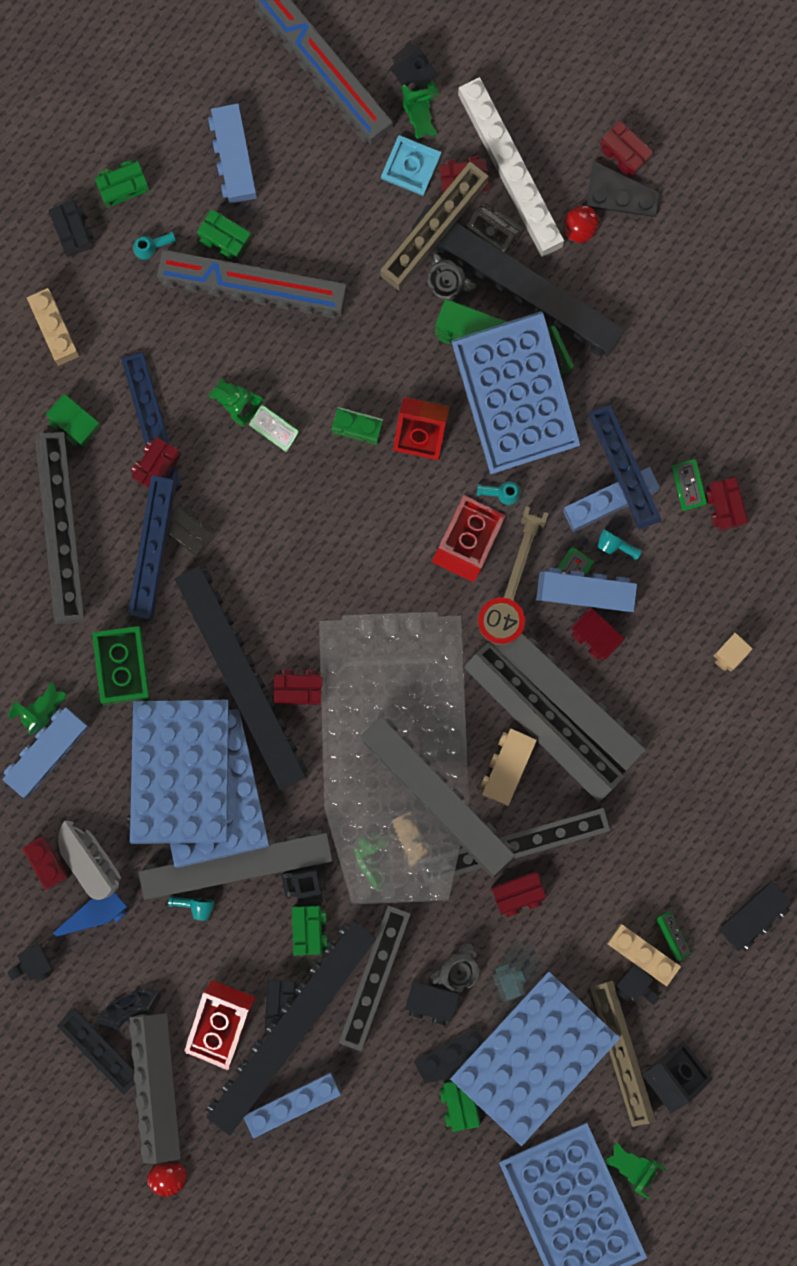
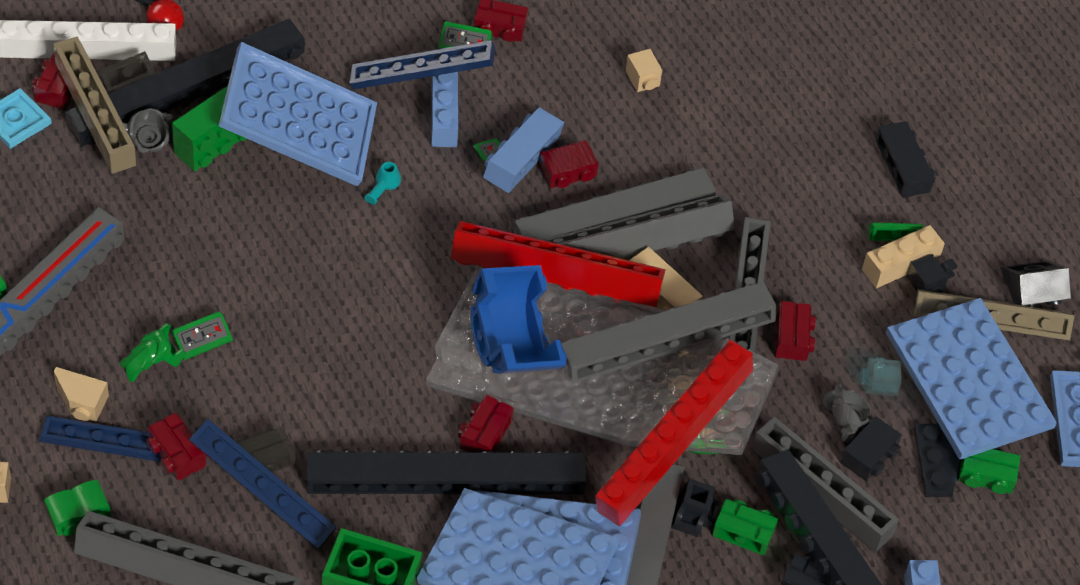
camera: 75 degrees left, 30 degrees down
(170, 367) = (81, 394): none -> tan slope
(337, 845) = (674, 433): none -> red brick
(357, 426) = (246, 263): green brick -> none
(371, 675) = (508, 321): none -> blue cylinder
(421, 428) = (282, 214): red slope -> none
(467, 676) = (559, 263): none -> red brick
(468, 538) = (416, 224): red slope -> none
(502, 618) = (508, 217): dark tan piece -> none
(610, 543) = (484, 117): teal bar -> none

